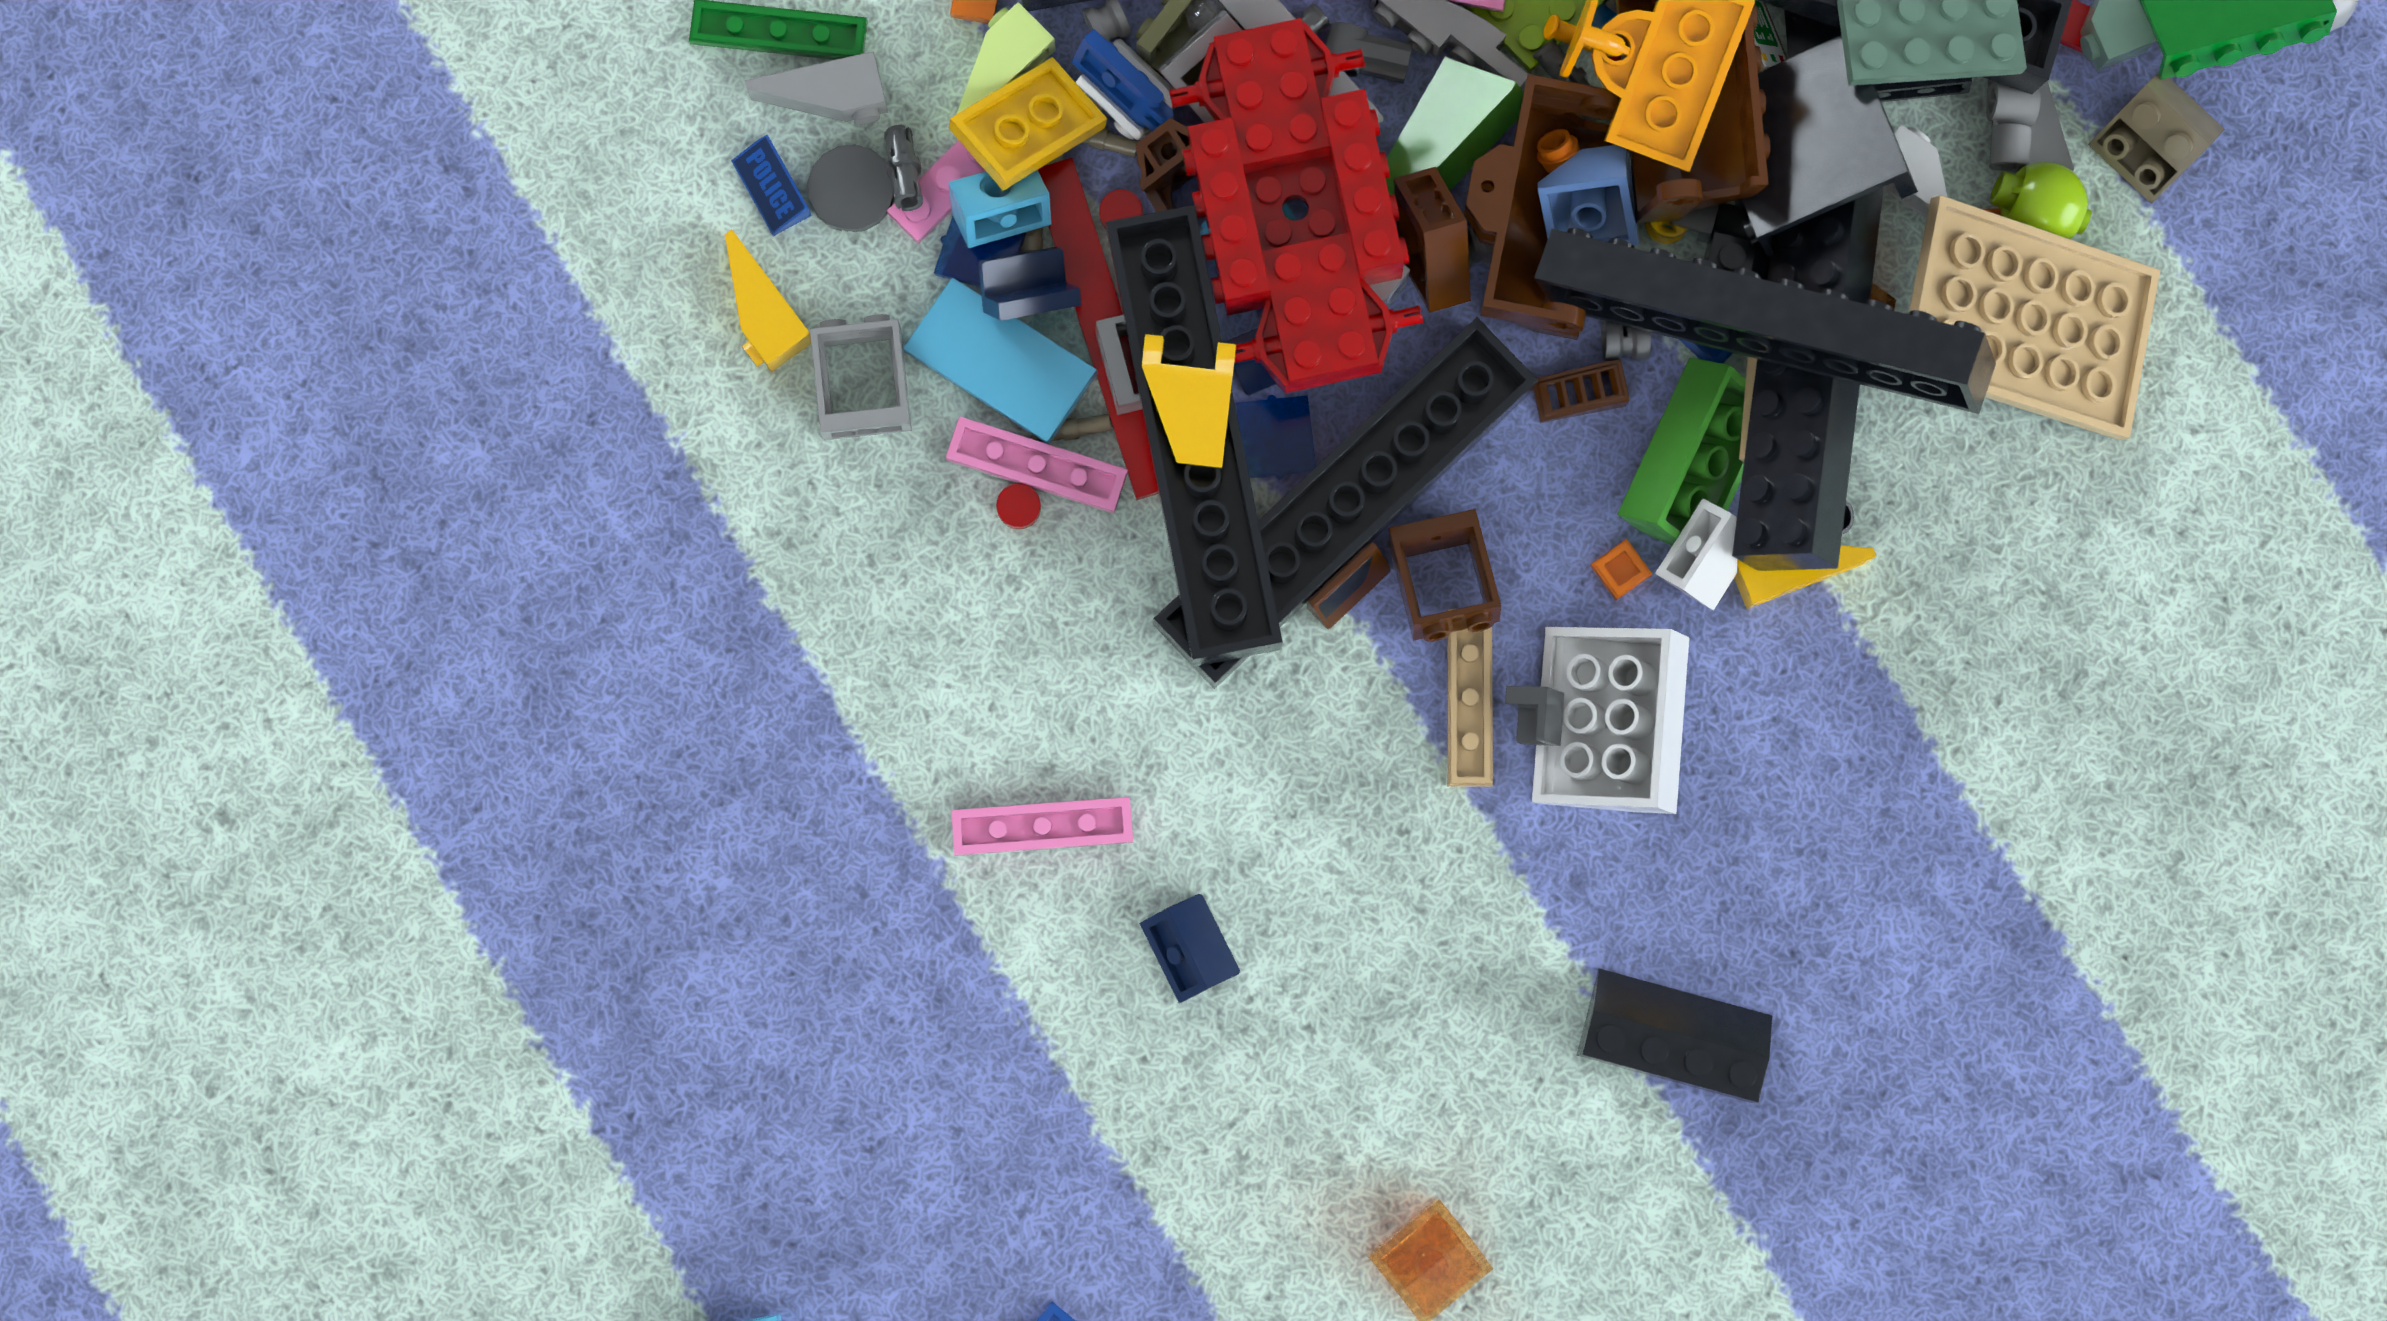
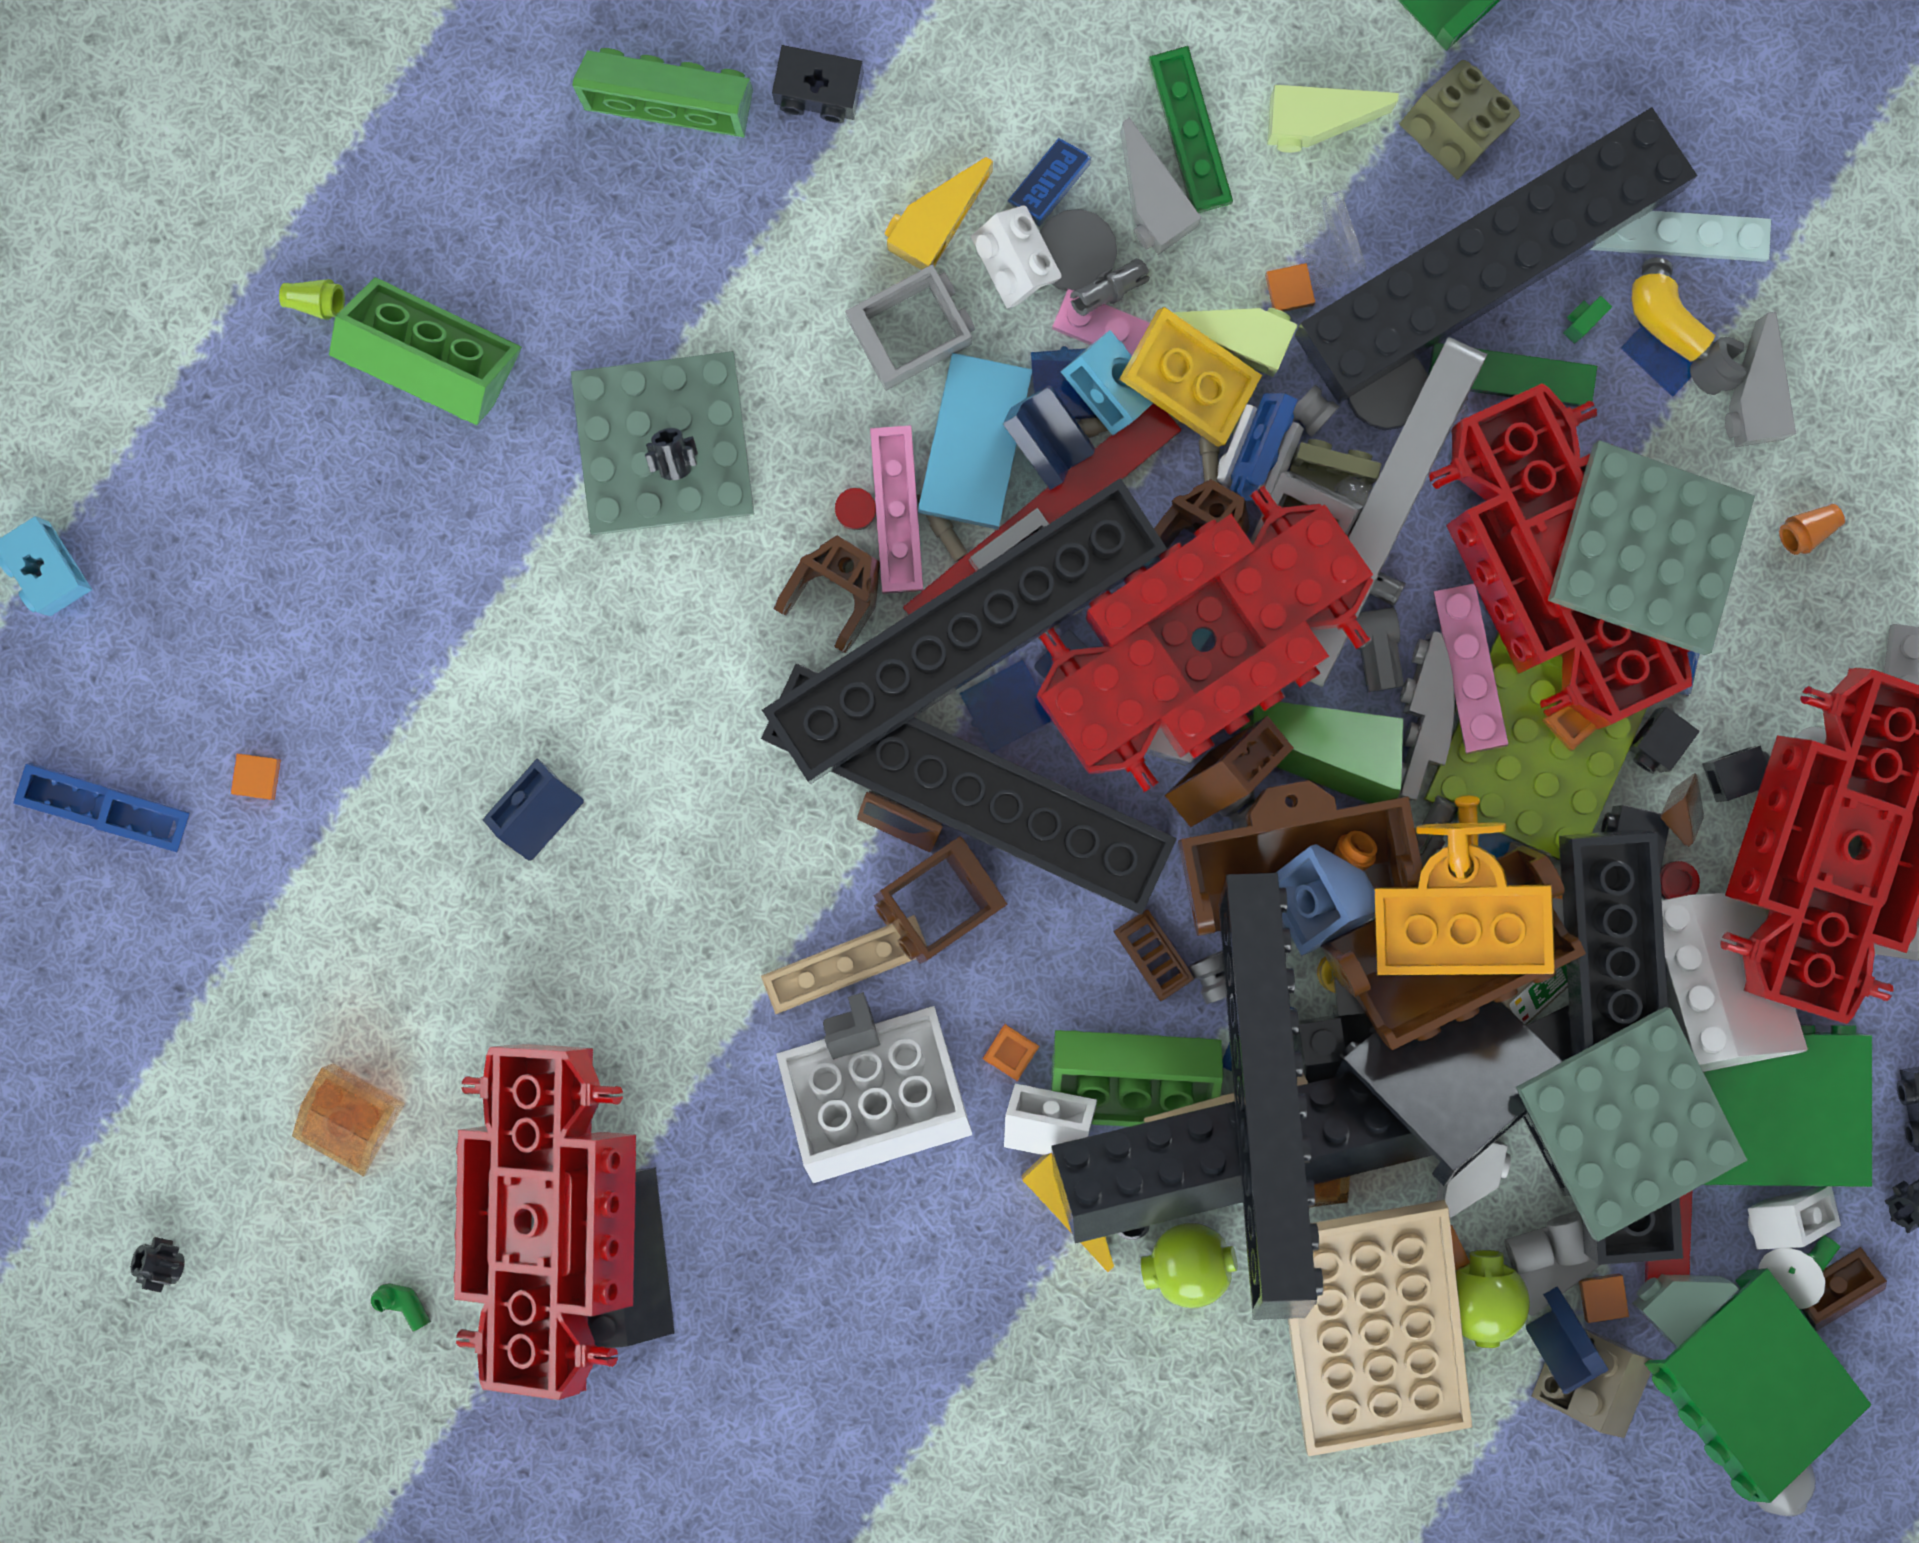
camera: 75 degrees right, 5 degrees up
(523, 523) = (664, 92): none -> bright green slope
(578, 963) = (316, 298): none -> lime cone
(580, 348) = (802, 68): none -> black brick
(680, 871) = (423, 350): none -> bright green slope
(833, 247) = (1015, 255): none -> white bracket
(872, 671) = (621, 412): none -> sand green plate
(892, 659) = (671, 454): none -> black gear
(1042, 826) = (585, 641): bright pink plate -> none
(1042, 1218) = (255, 776): none -> orange tile
(1064, 552) = (831, 562): none -> reddish brown piece
(1119, 205) = (1151, 491): red tile -> none
(1191, 402) = (987, 617): yellow flag -> none
(1596, 1034) = (581, 1191): none -> red piece
(1634, 1277) = (403, 1300): none -> green arm
(1900, 474) = (1190, 1265): none -> lime brick
(2082, 96) = (1603, 1298): none -> orange tile
(2113, 146) = (1565, 1344): none -> dark blue panel

